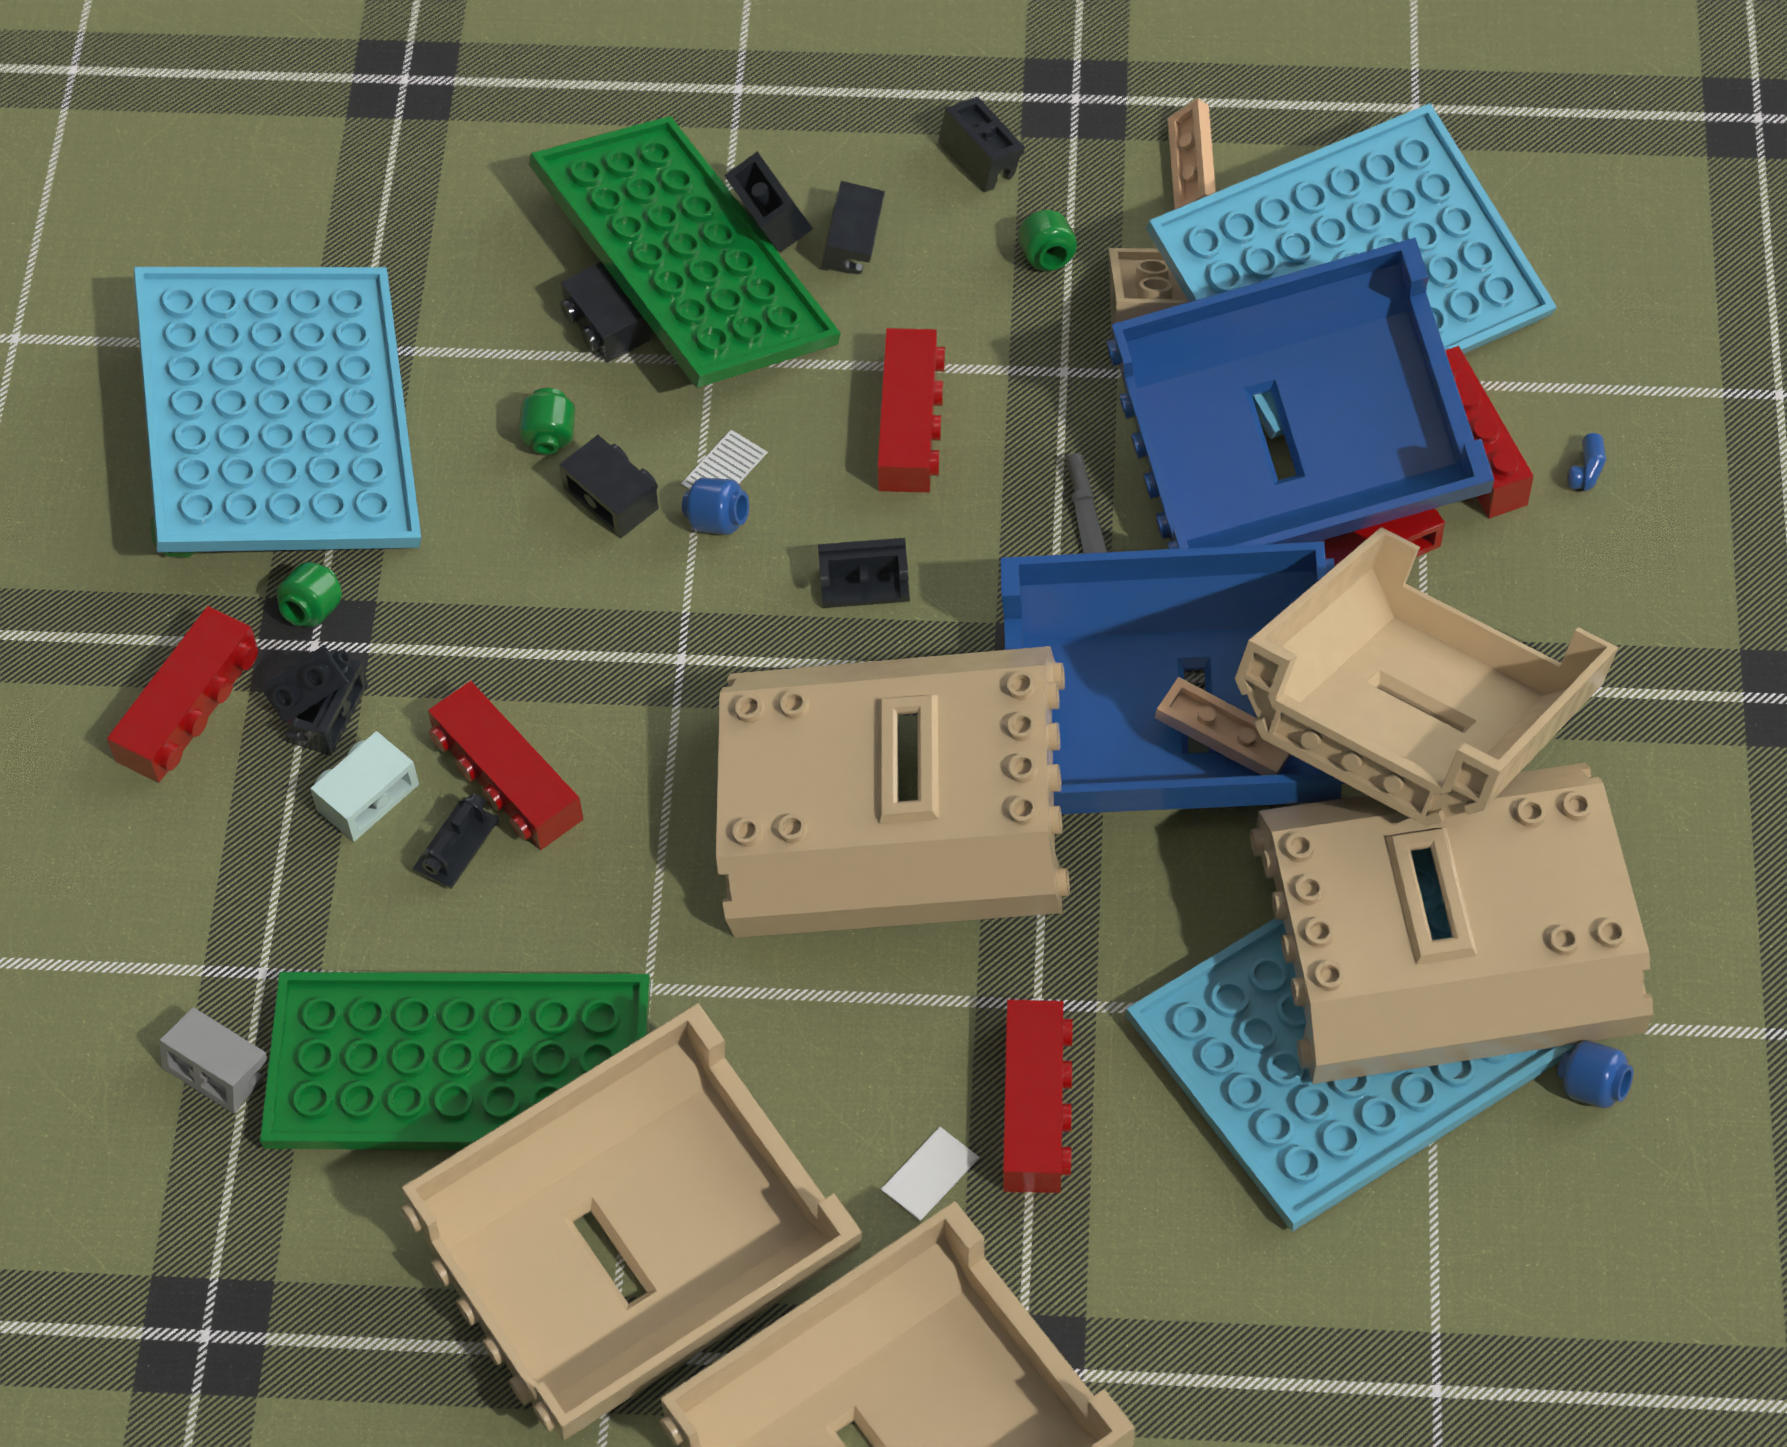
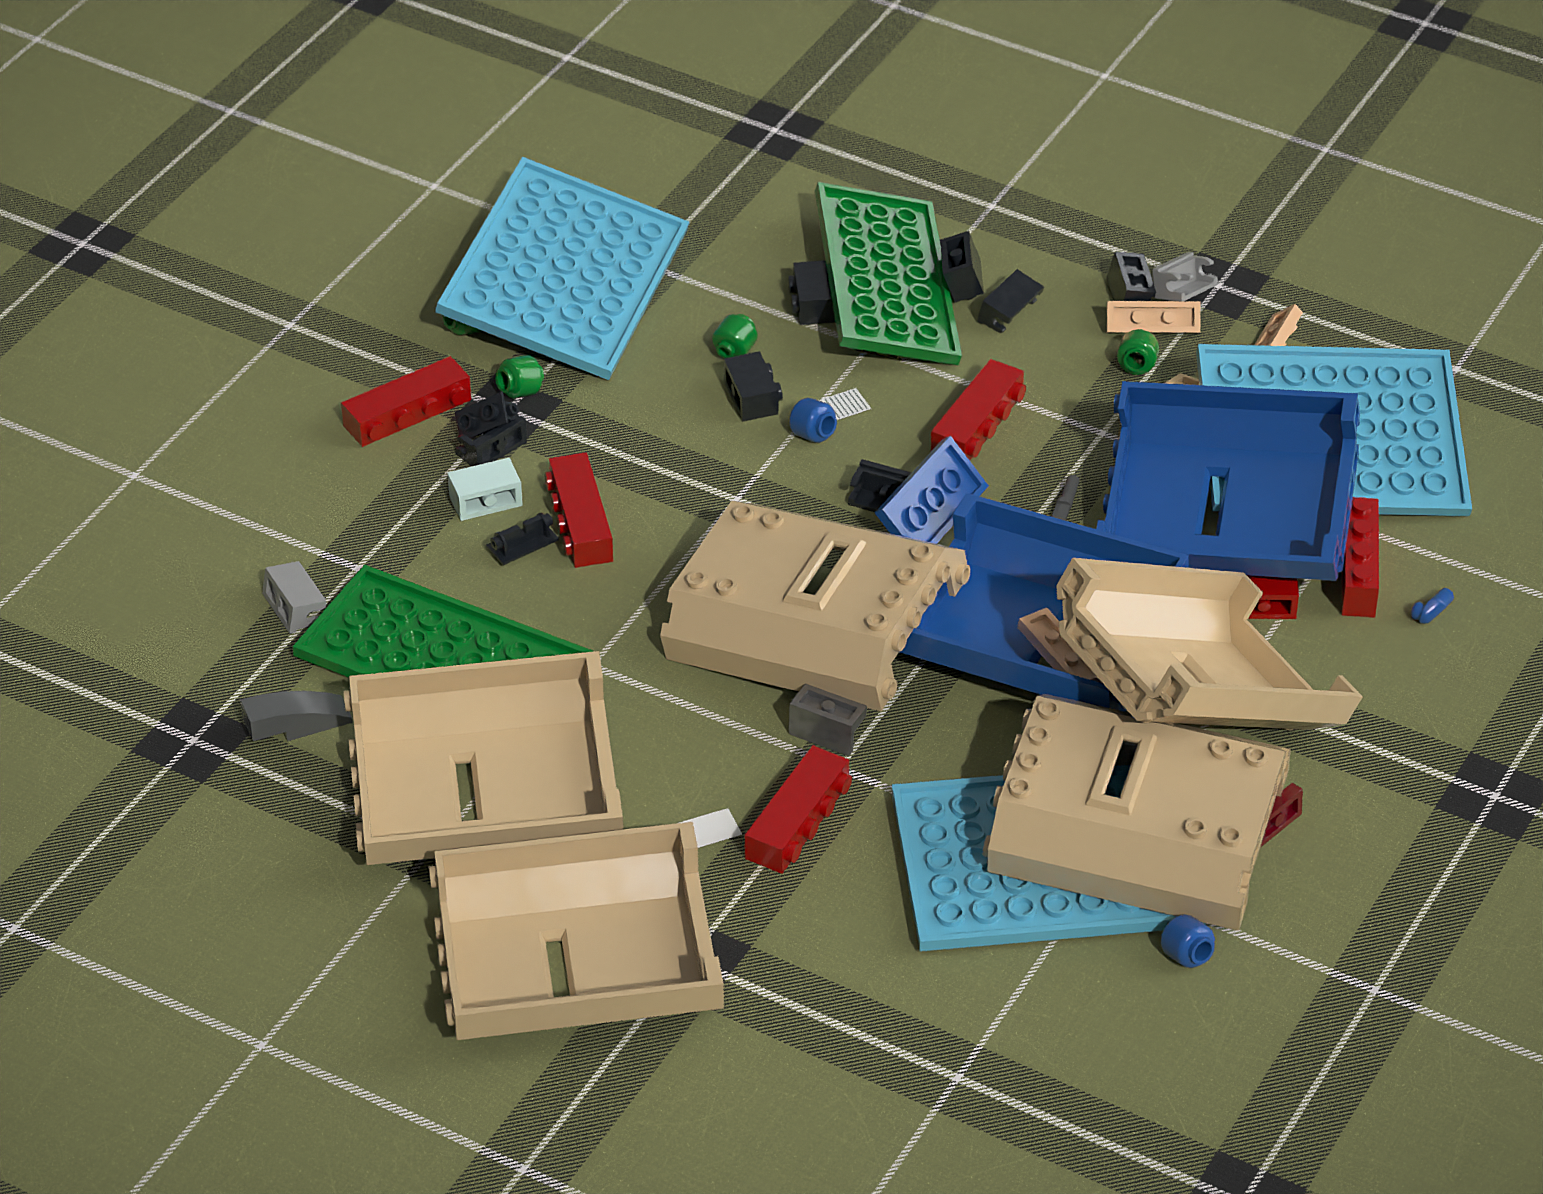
camera: 25 degrees right, 15 degrees down
(322, 1242) = (293, 713): none -> dark grey slope
(934, 566) = (931, 493): none -> plate
(994, 947) = (825, 719): none -> flat silver panel
(1034, 181) = (1153, 316): none -> light nougat plate
(1041, 113) = (1183, 277): none -> light grey hinge

